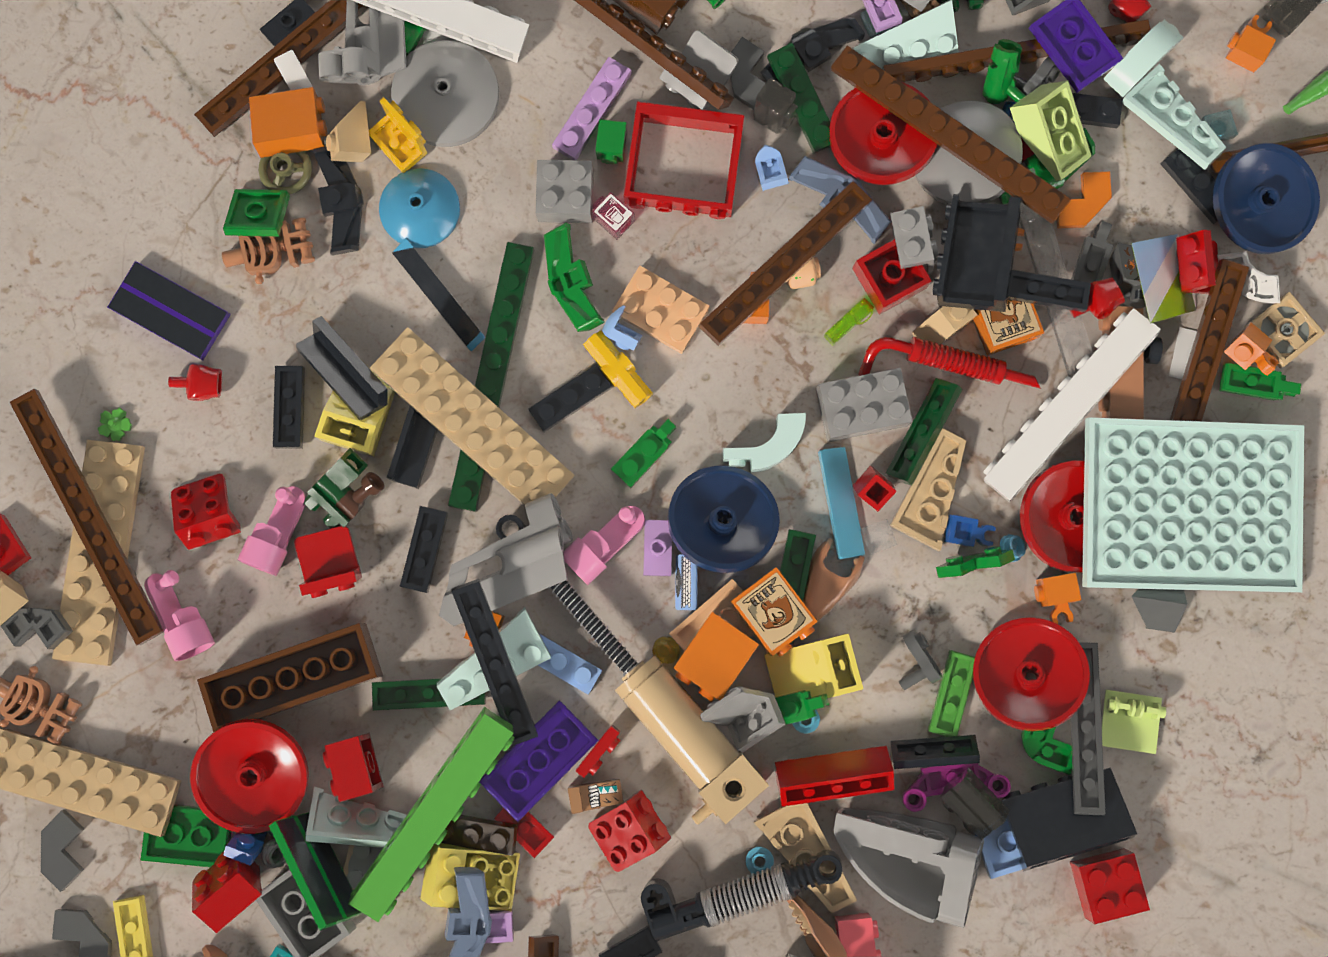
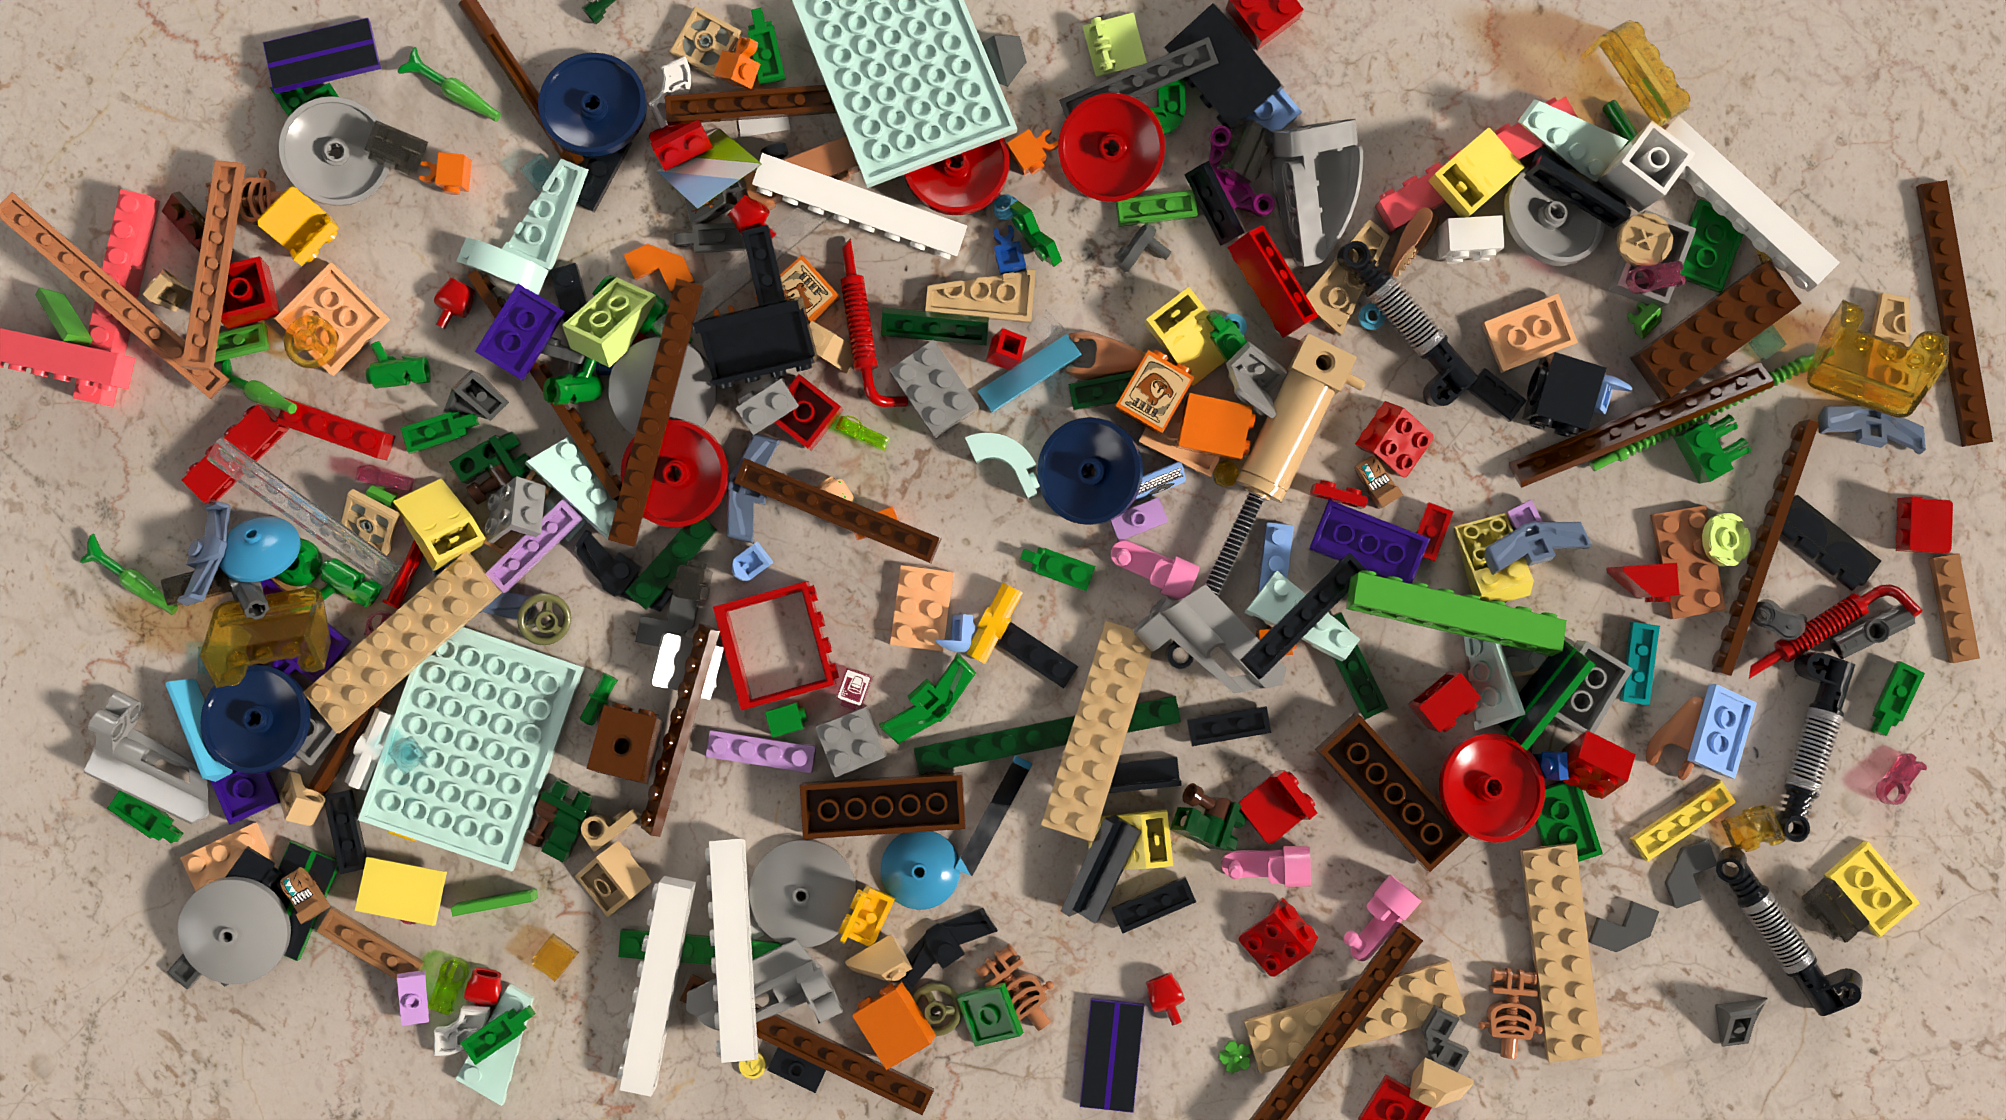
camera: 110 degrees left, 5 degrees up
(272, 862) = (1548, 739): light grey plate -> none
(292, 71) = (844, 1041): white sticker -> none
(482, 835) = (1453, 563): dark brown plate -> none
(492, 194) = (882, 805): none -> reddish brown brick

